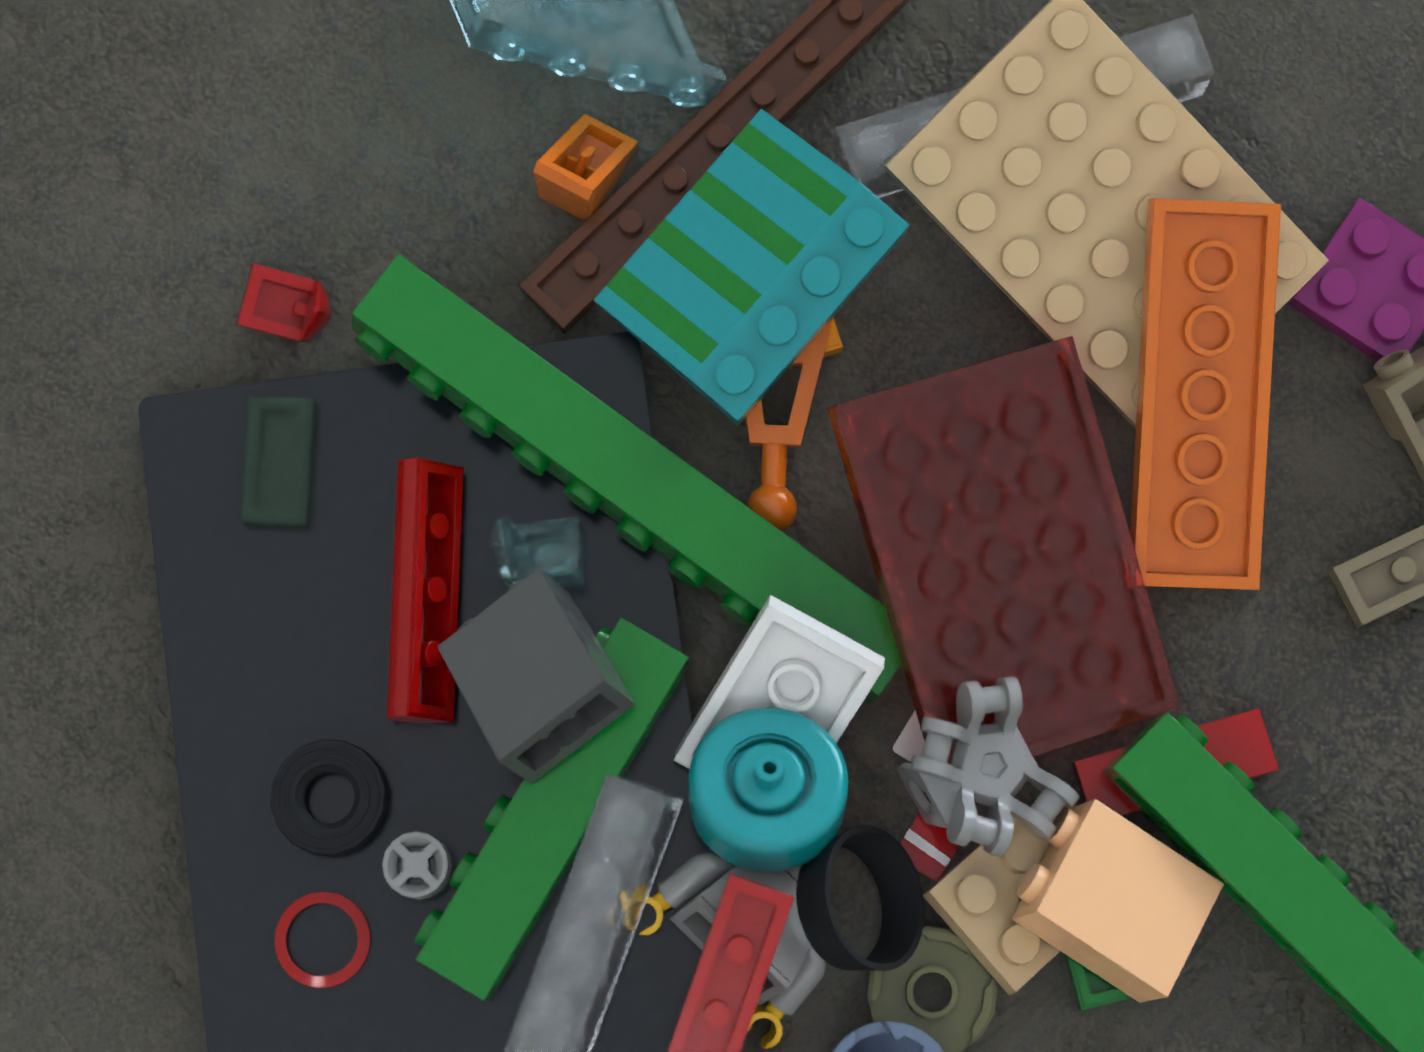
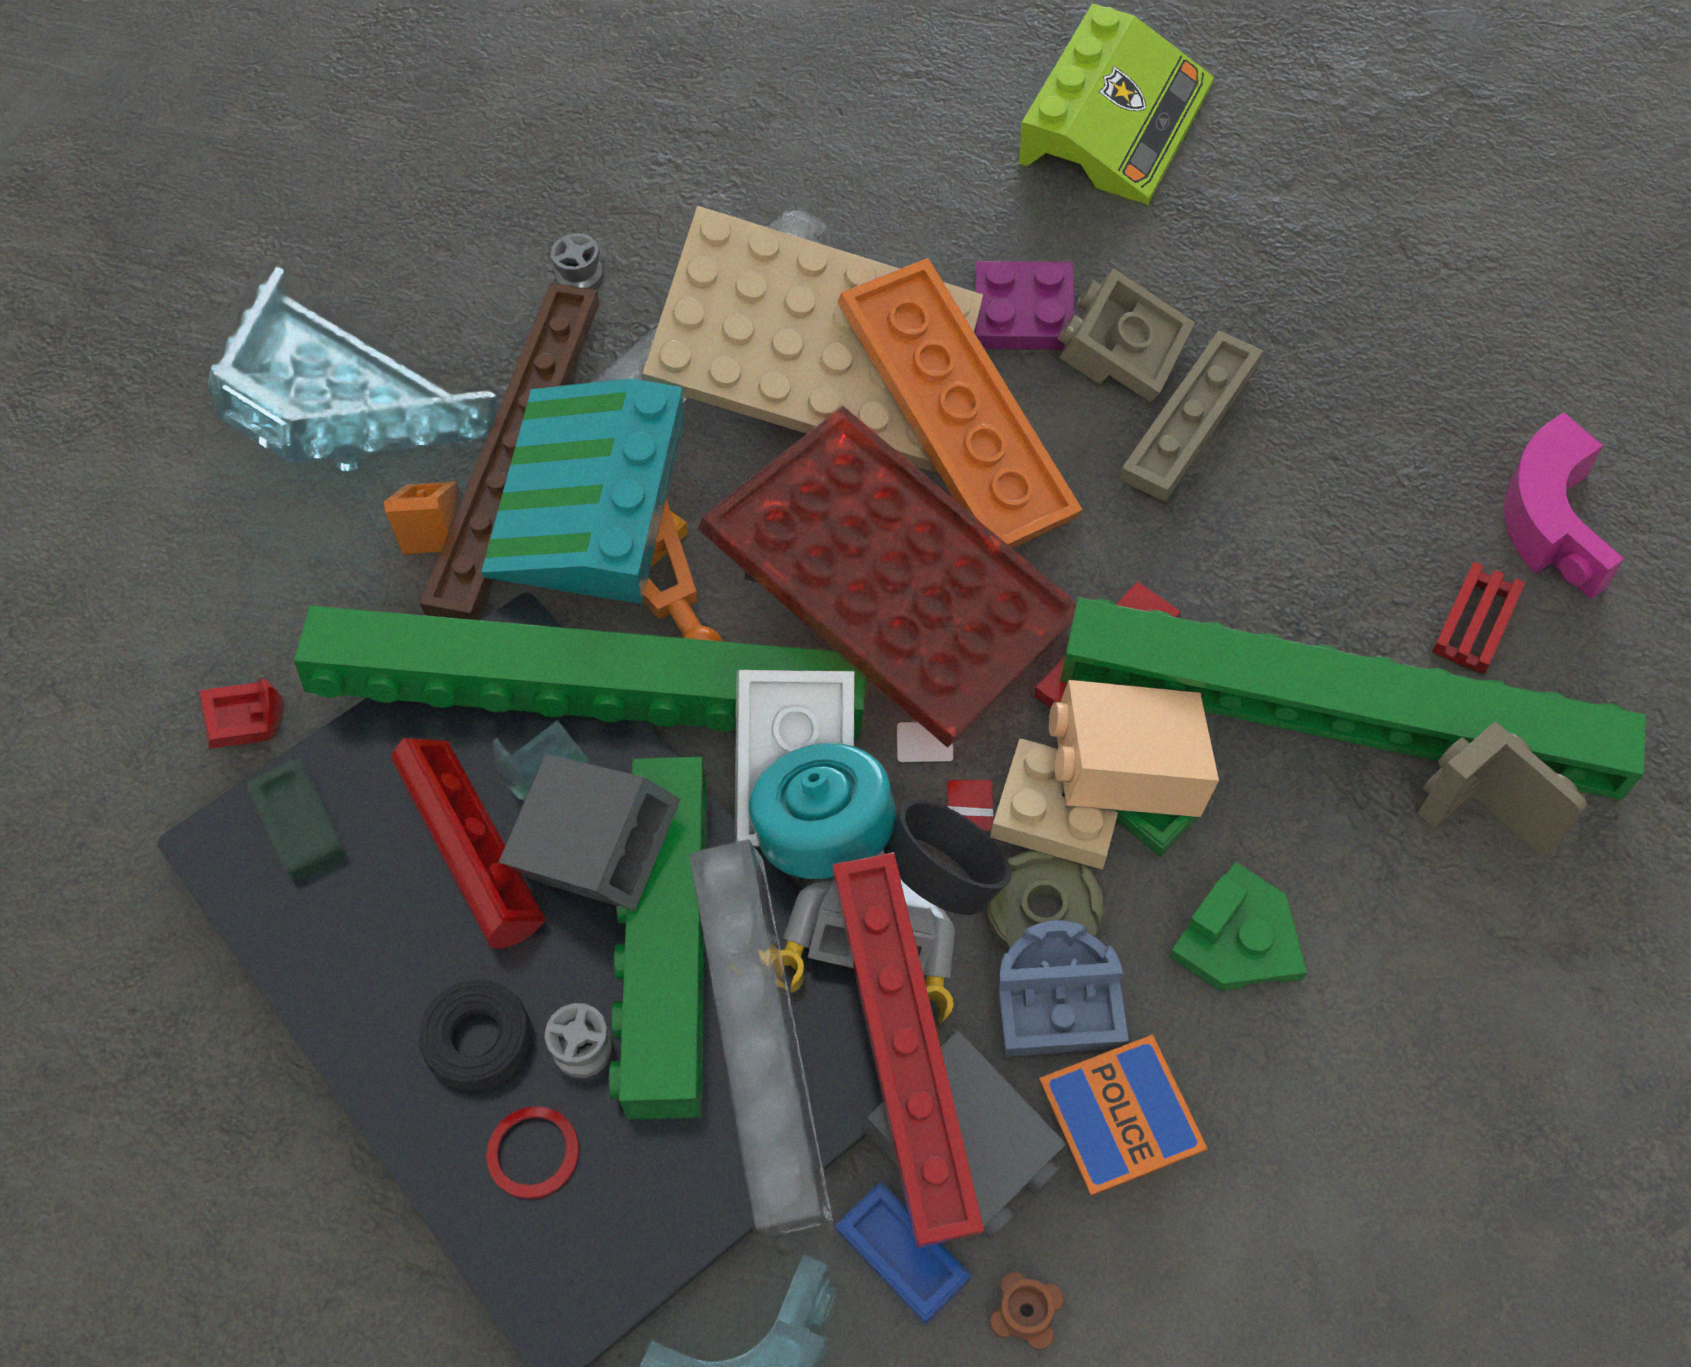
camera: 30 degrees left, 20 degrees down
(985, 768) = (972, 711): light grey piece -> none

